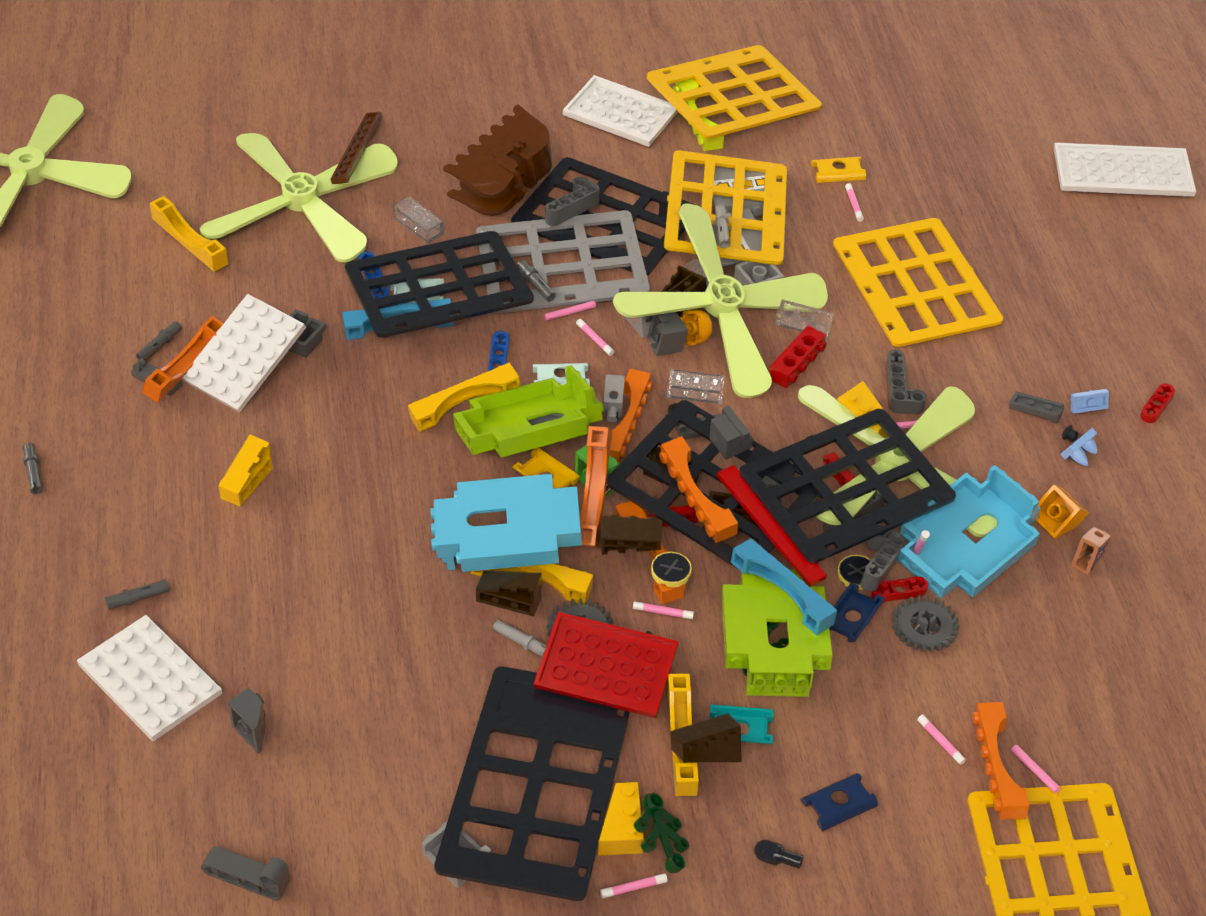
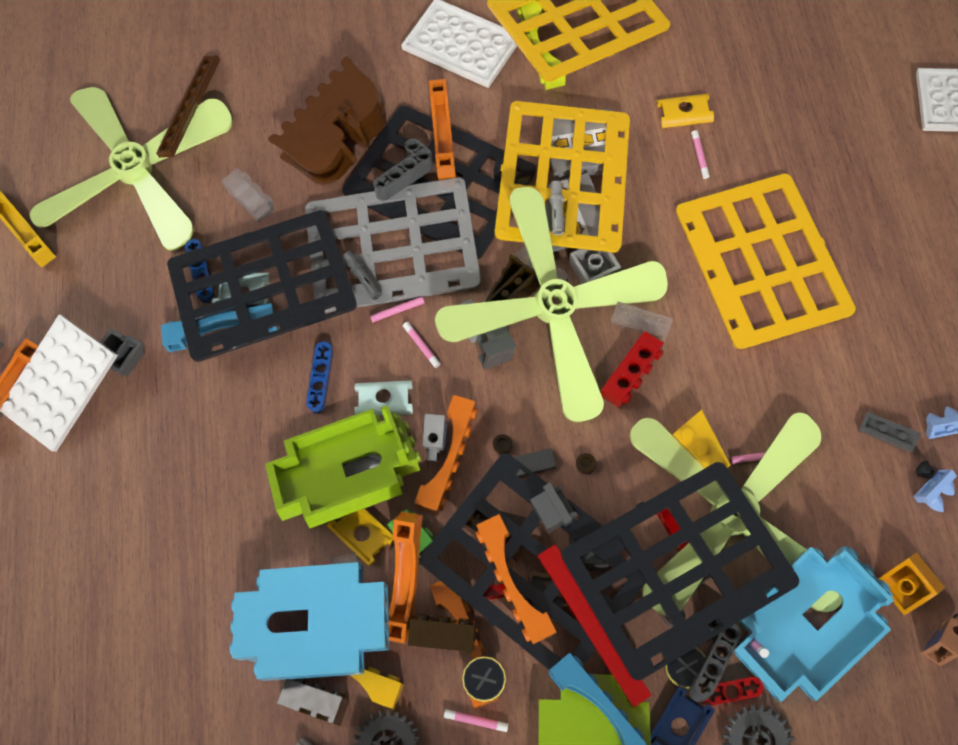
camera: 10 degrees right, 20 degrees up
(246, 471) = (51, 541): yellow wedge -> none
(429, 410) = (244, 452): yellow arch -> none
(604, 159) = (442, 129): none -> orange arch
(695, 386) = (522, 412): clear brick -> none
(699, 326) = (527, 335): light orange cylinder -> none
(756, 426) = (585, 463): none -> dark brown tile
(899, 397) = (742, 401): dark grey beam -> none

